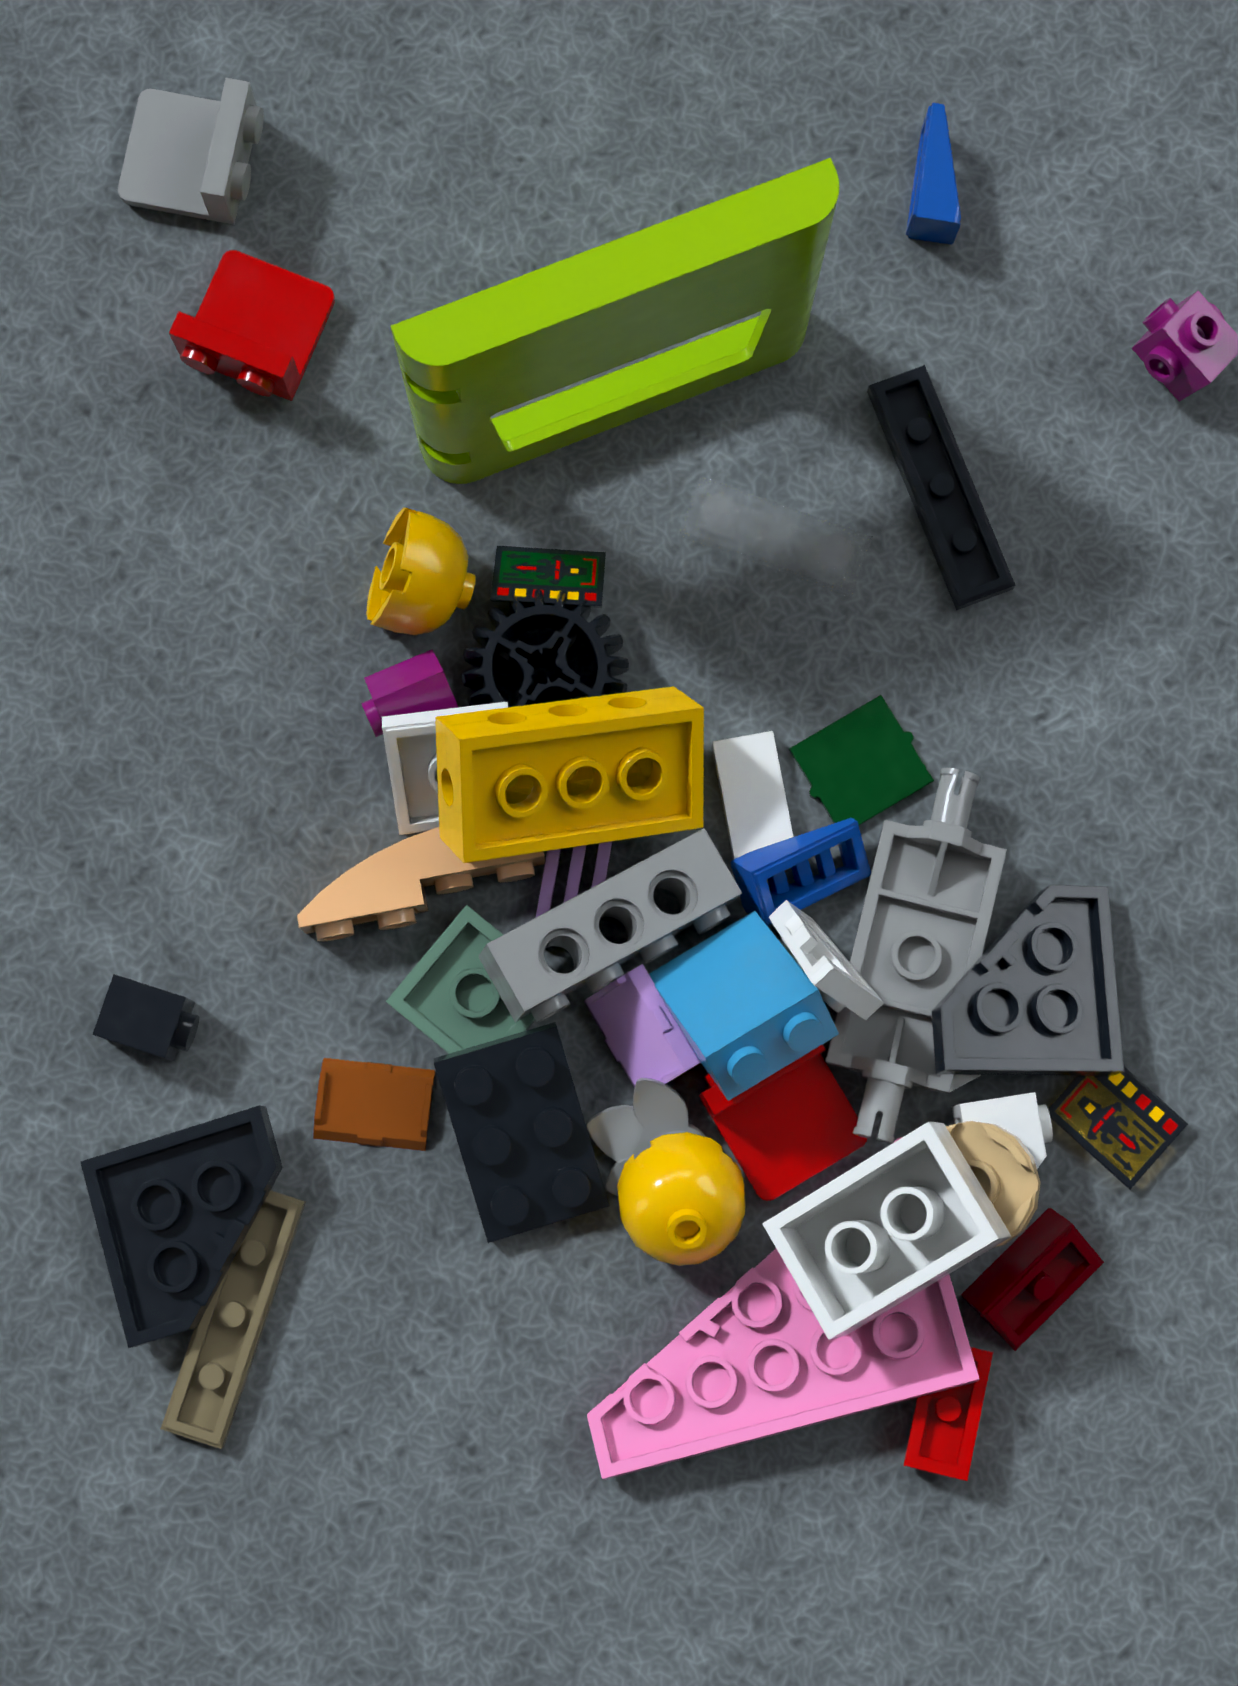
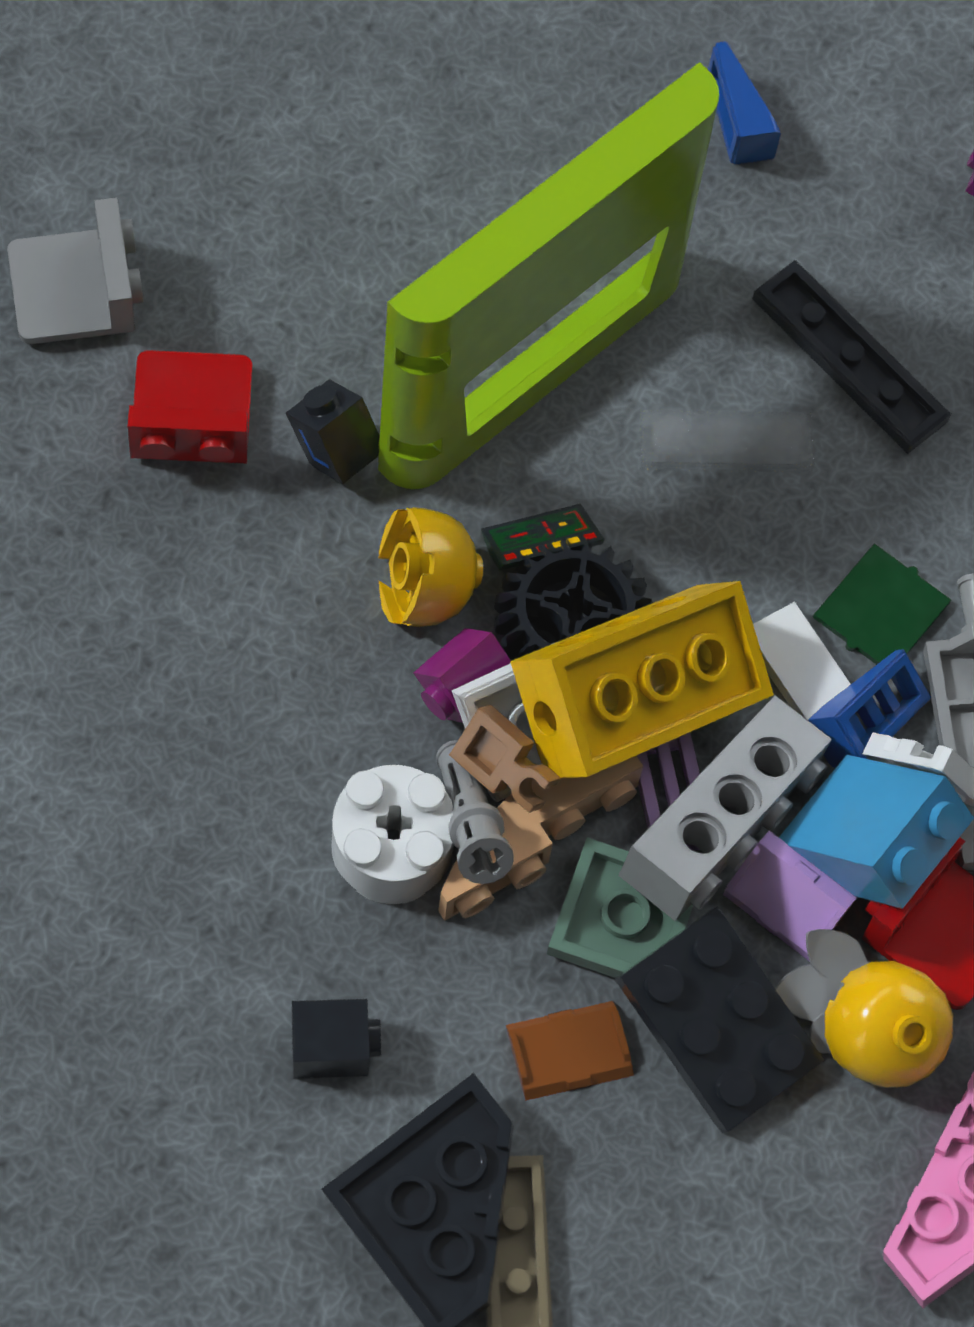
camera: 25 degrees left, 15 degrees down
(266, 803) = (397, 800): none -> white brick
(349, 863) = (474, 823): none -> light grey pin
(378, 400) = (335, 430): none -> black brick
(398, 804) = (496, 756): none -> medium nougat plate

